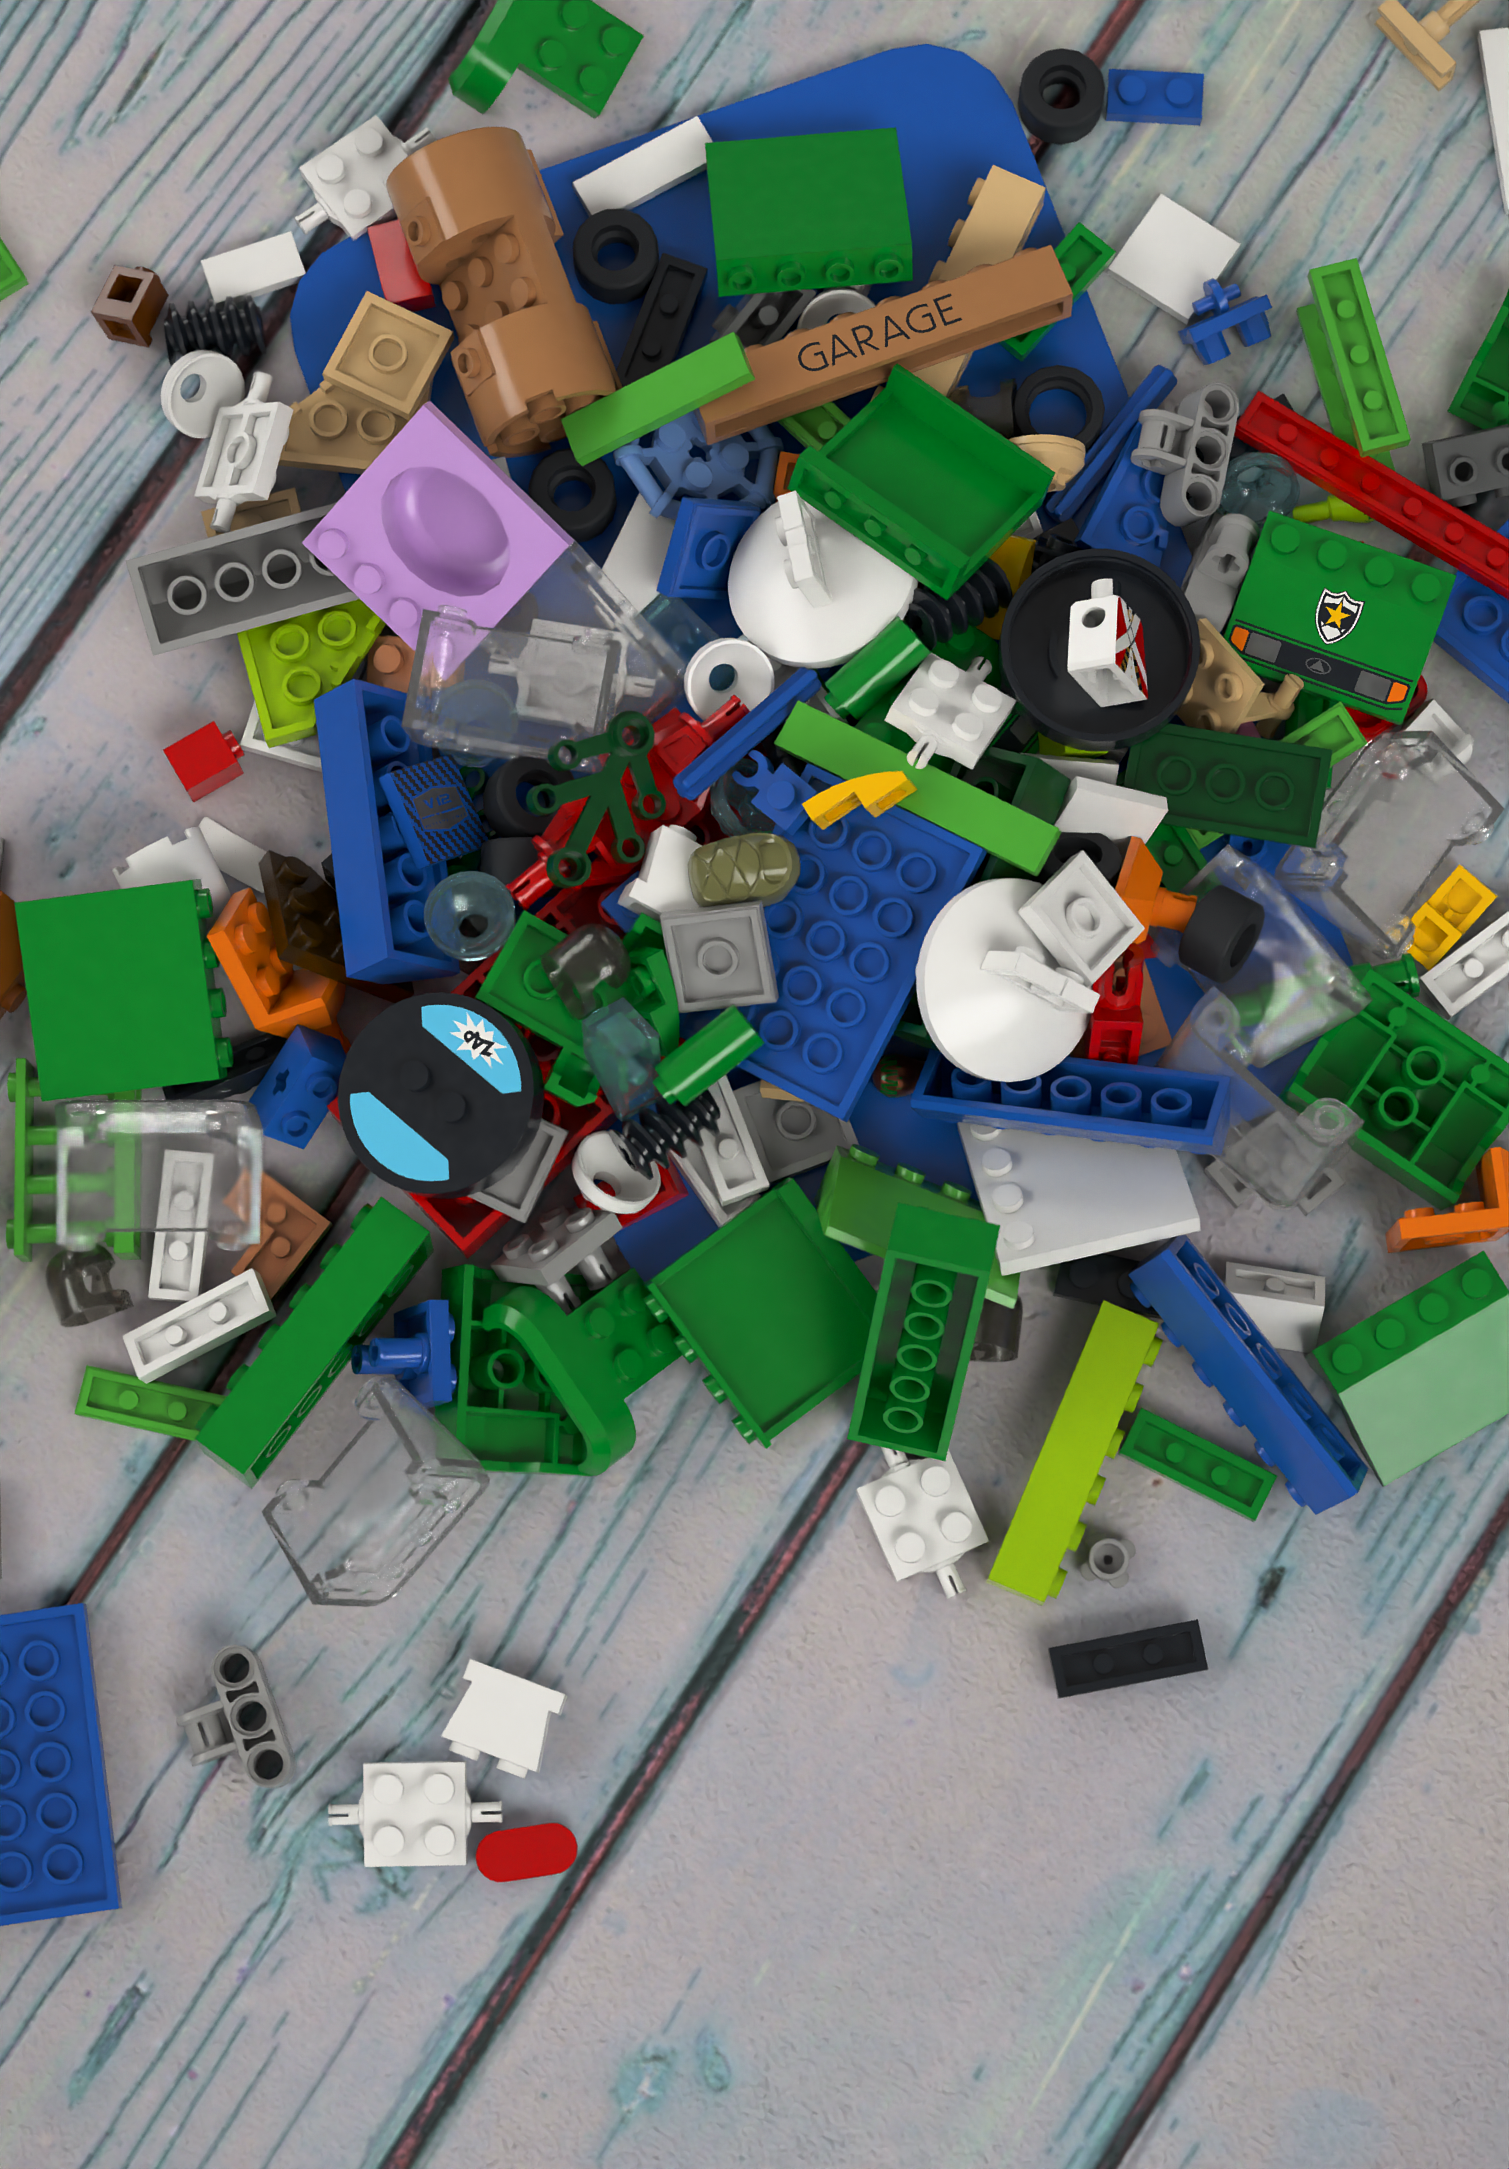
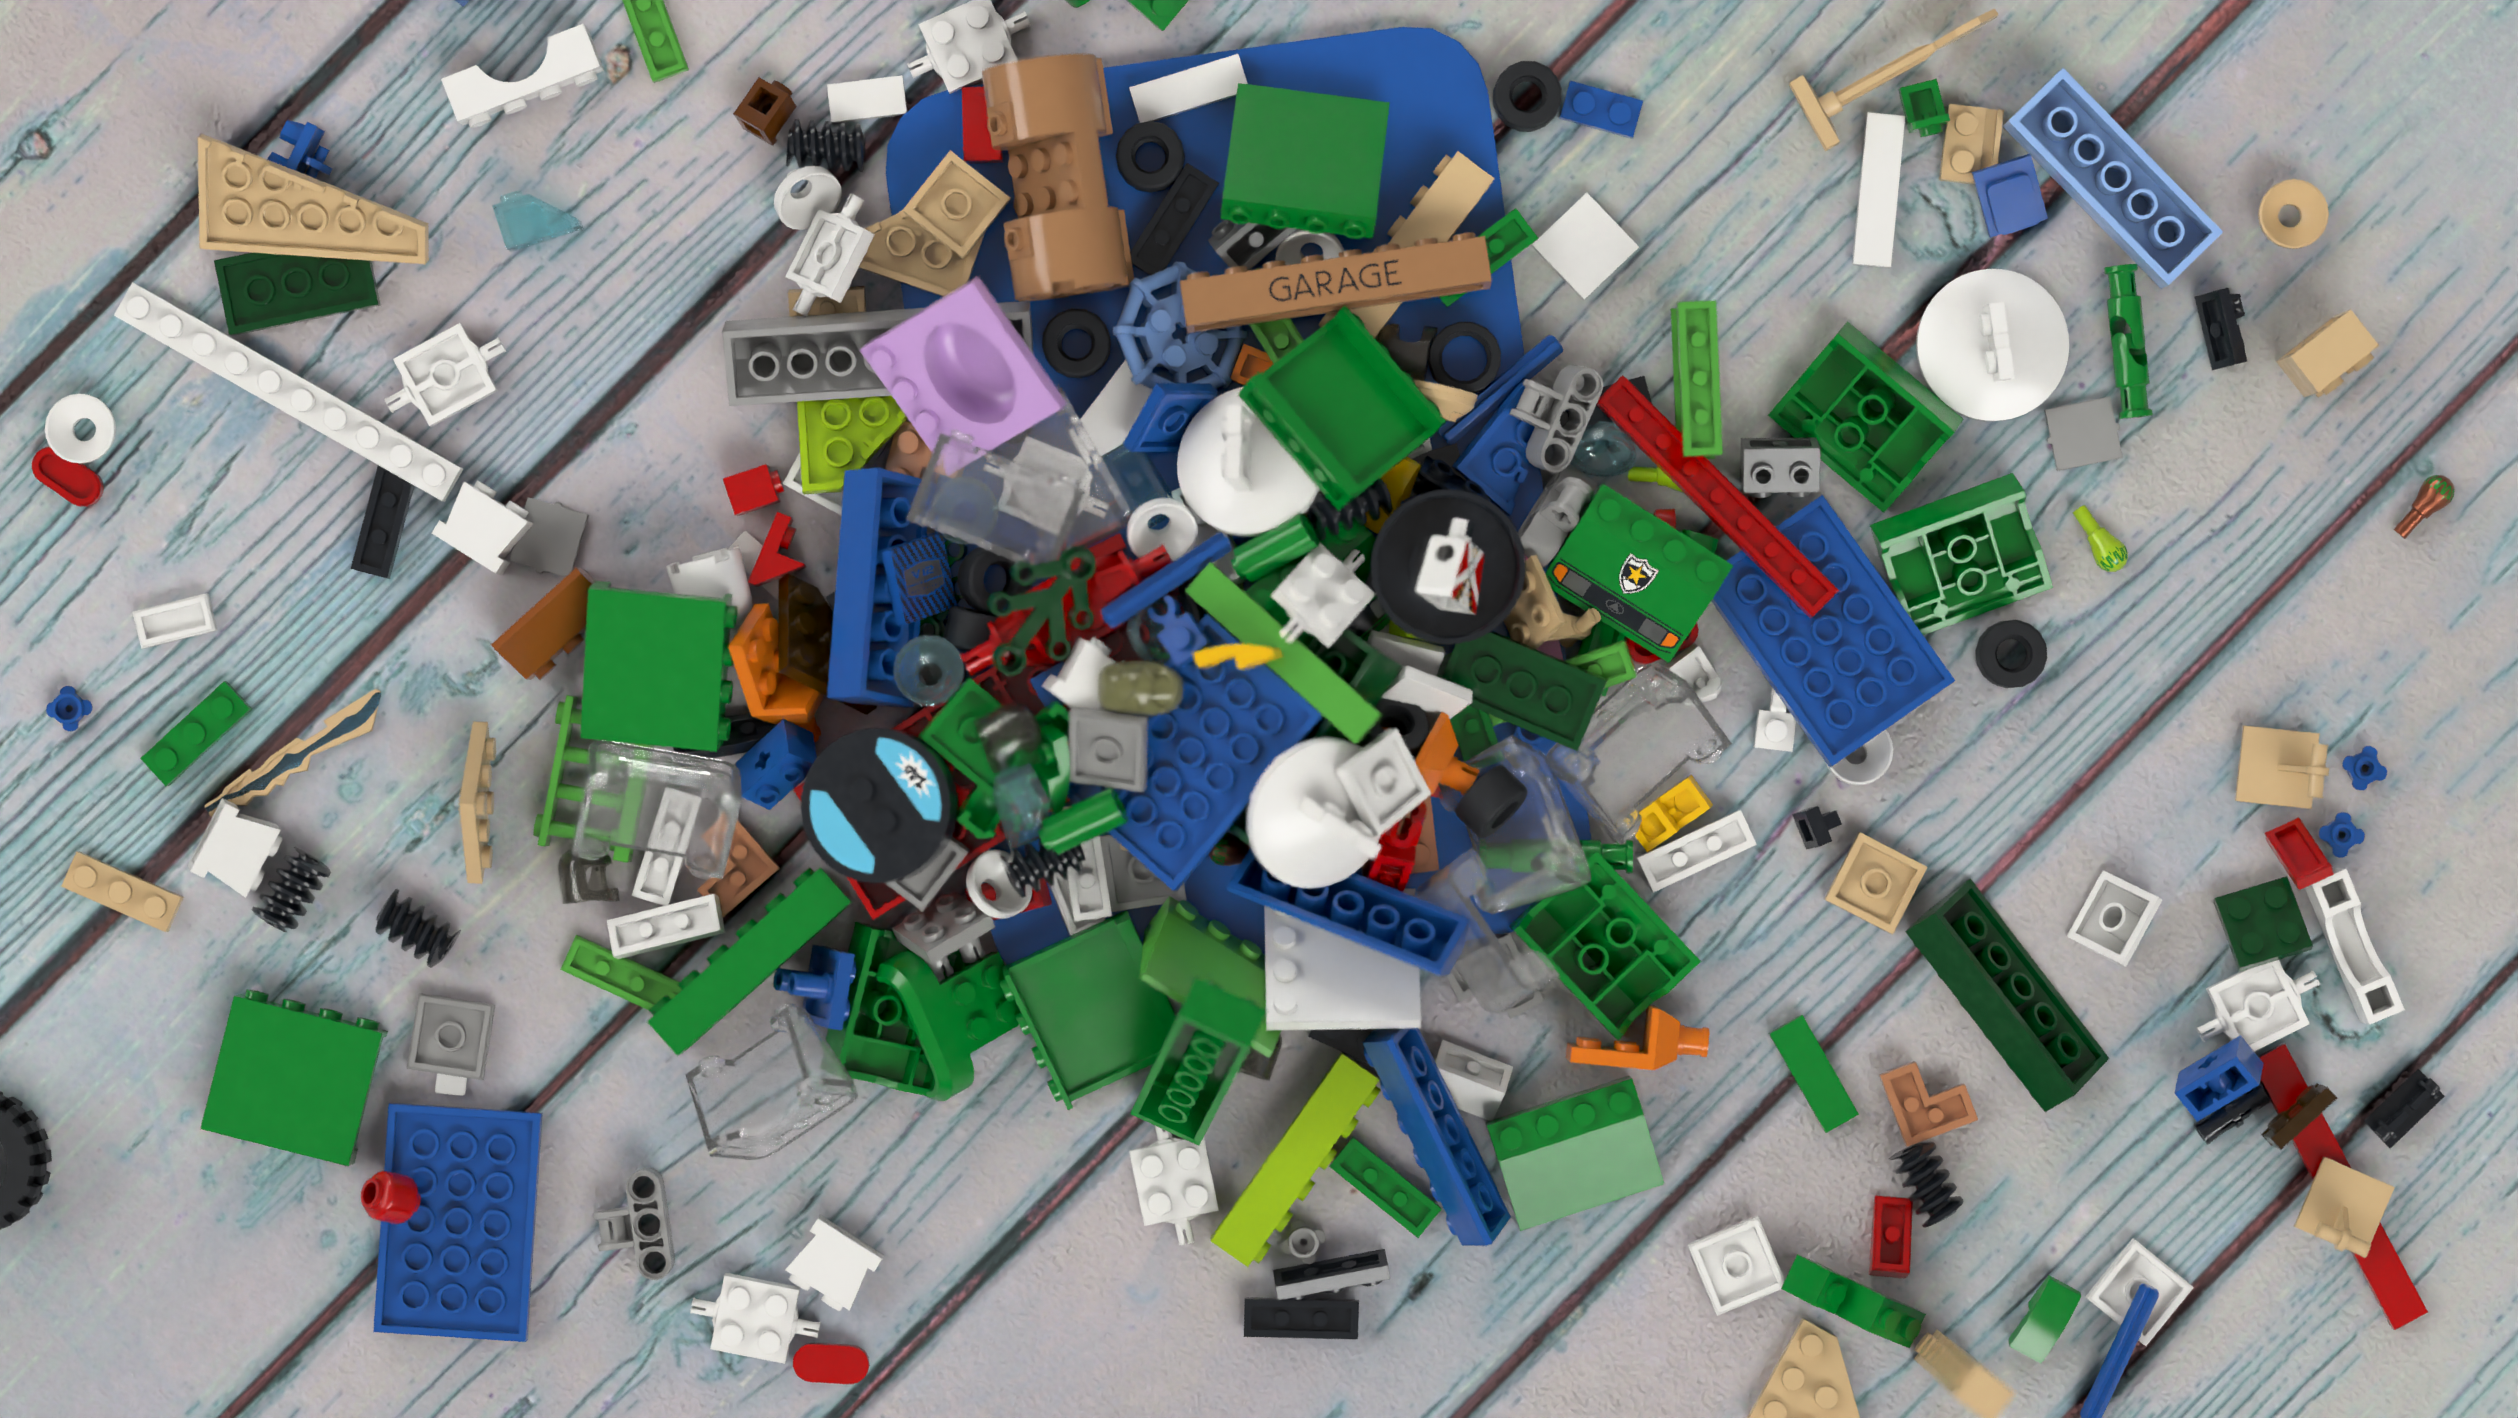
camera: 10 degrees right, 10 degrees up
(244, 841) = (770, 563): none -> red slope
(658, 399) = (1154, 297): bright green tile -> none
(1155, 1593) = (1331, 1275): none -> black plate
(1247, 317) = (1609, 303): blue hips -> none

